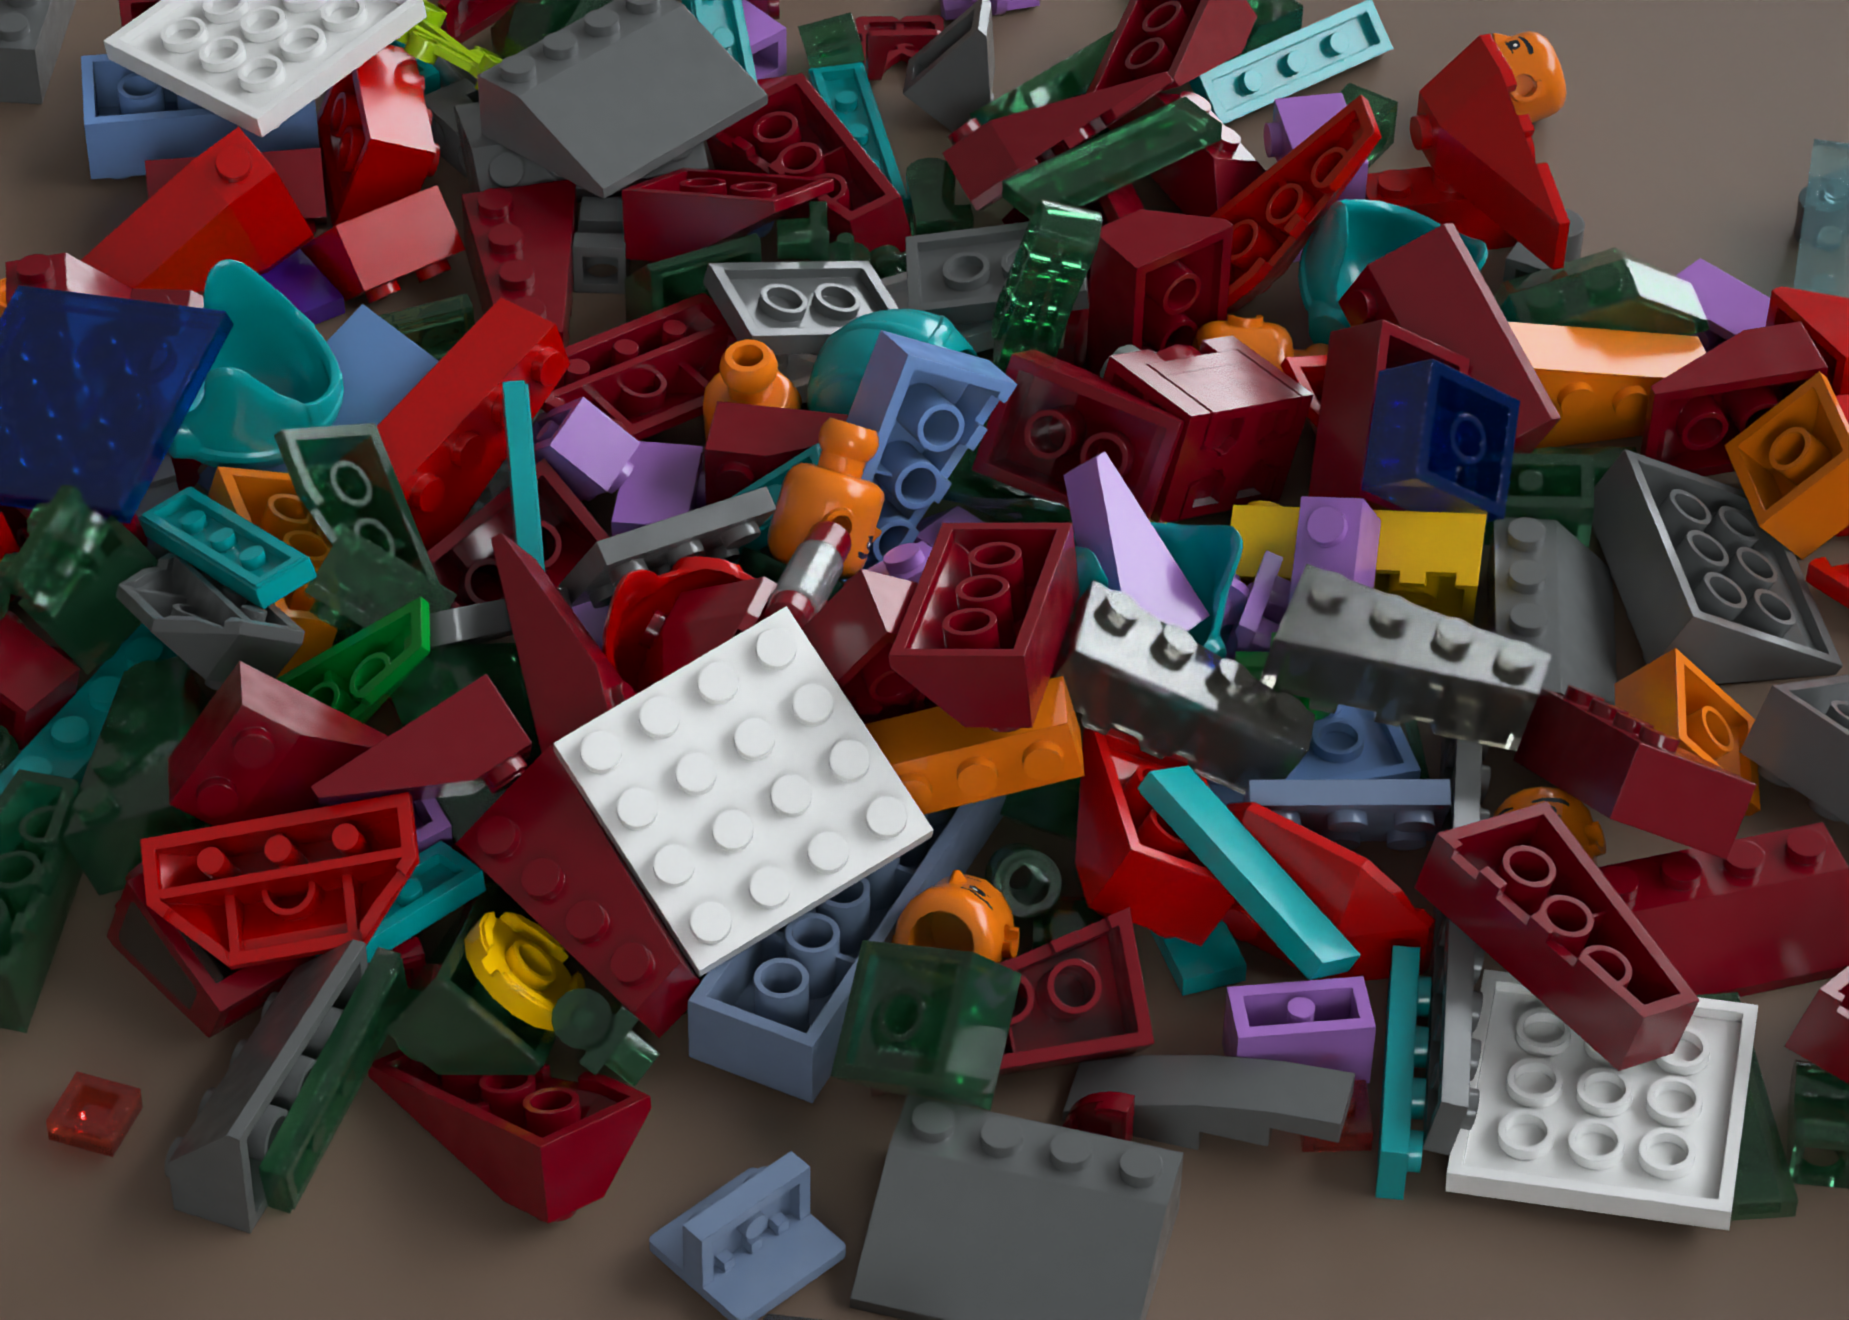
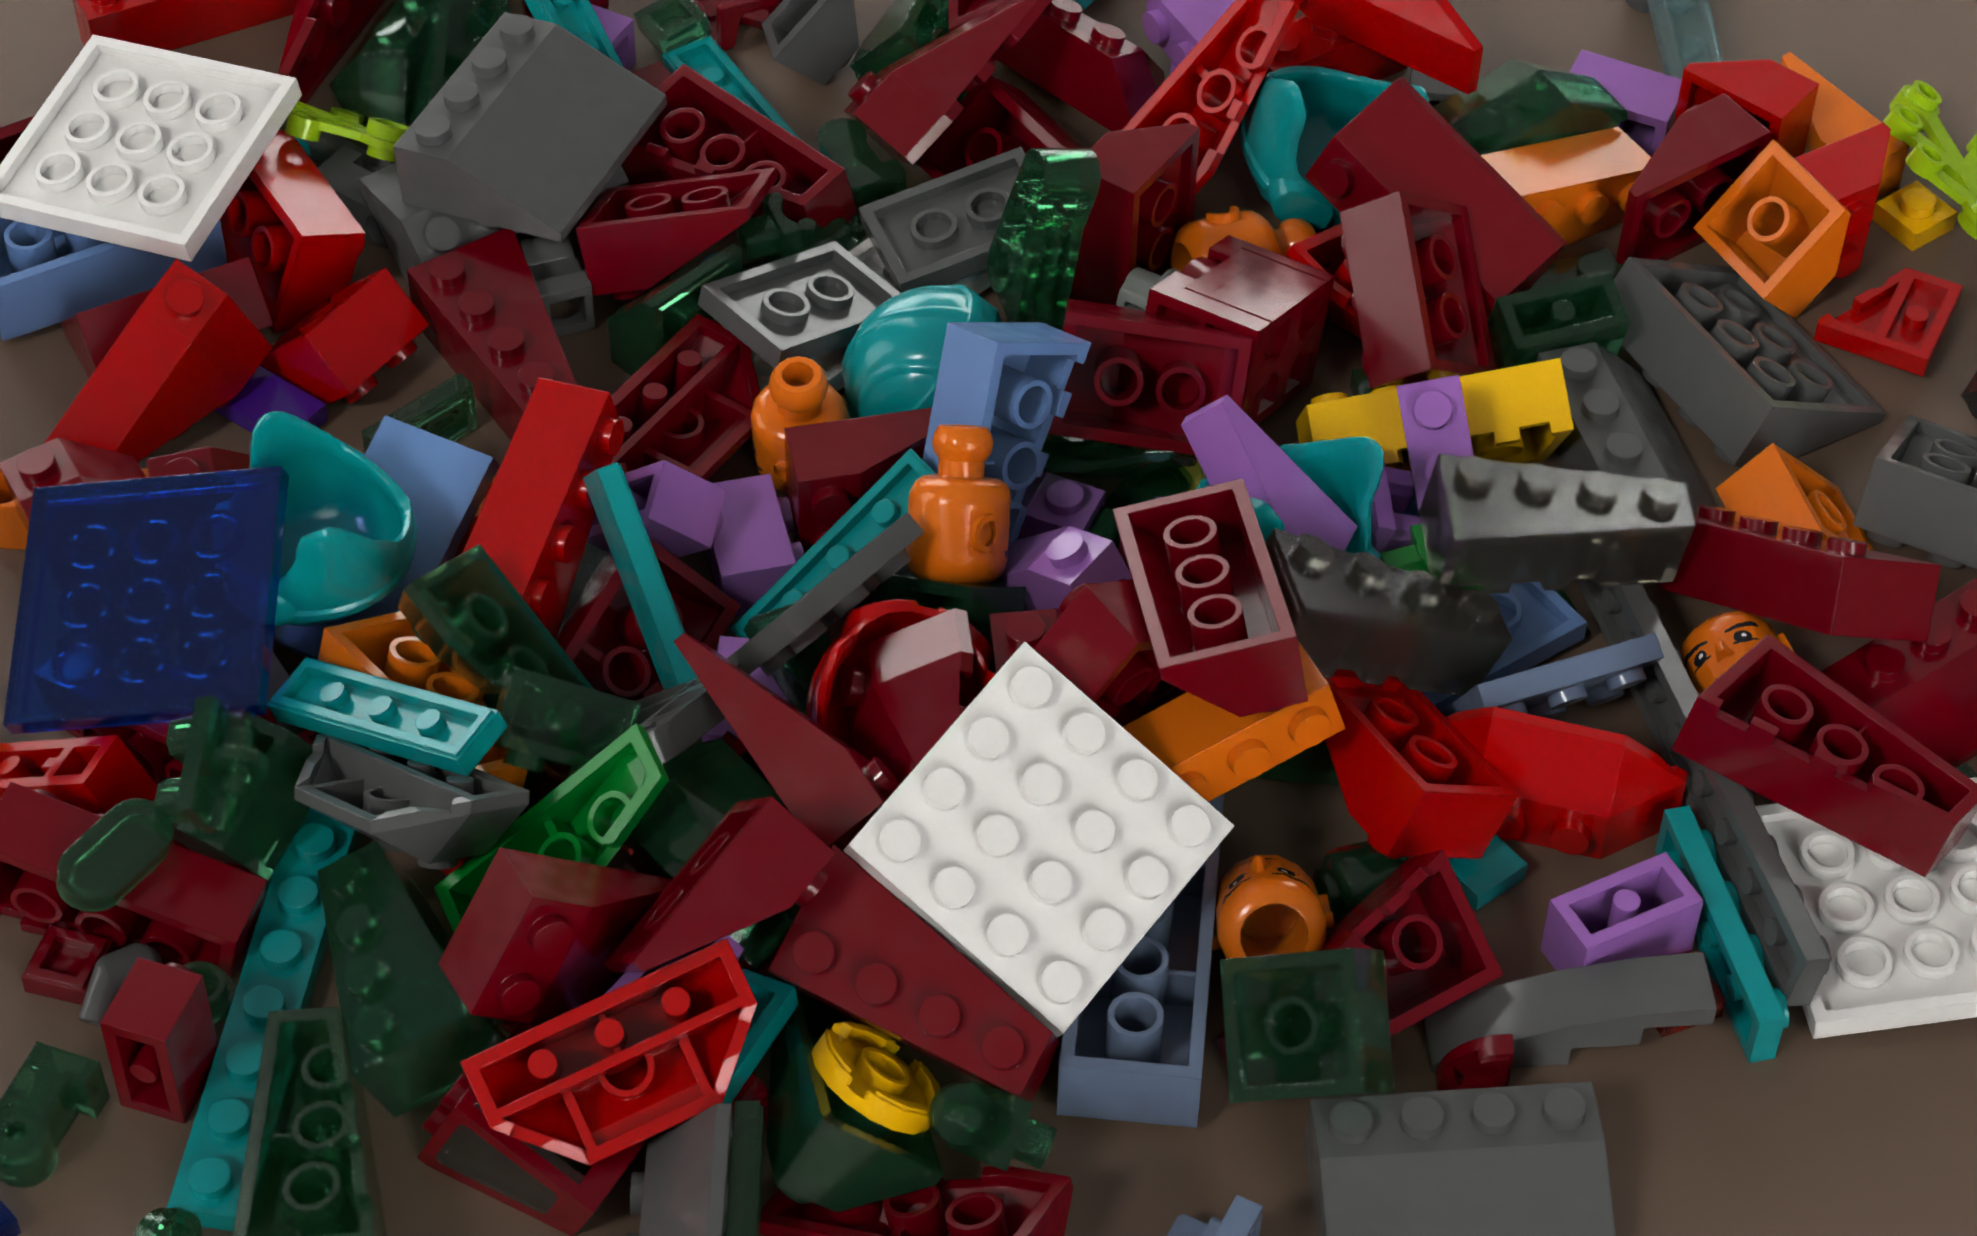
camera: 20 degrees left, 5 degrees up
(811, 572) = (991, 599): clear piece -> none
(1043, 883) = (1296, 835): clear green head -> none
(1115, 157) = (1025, 85): clear green tile -> none
(1248, 872) = (1518, 778): teal tile -> none
(1440, 441) = (1489, 298): clear blue brick -> none

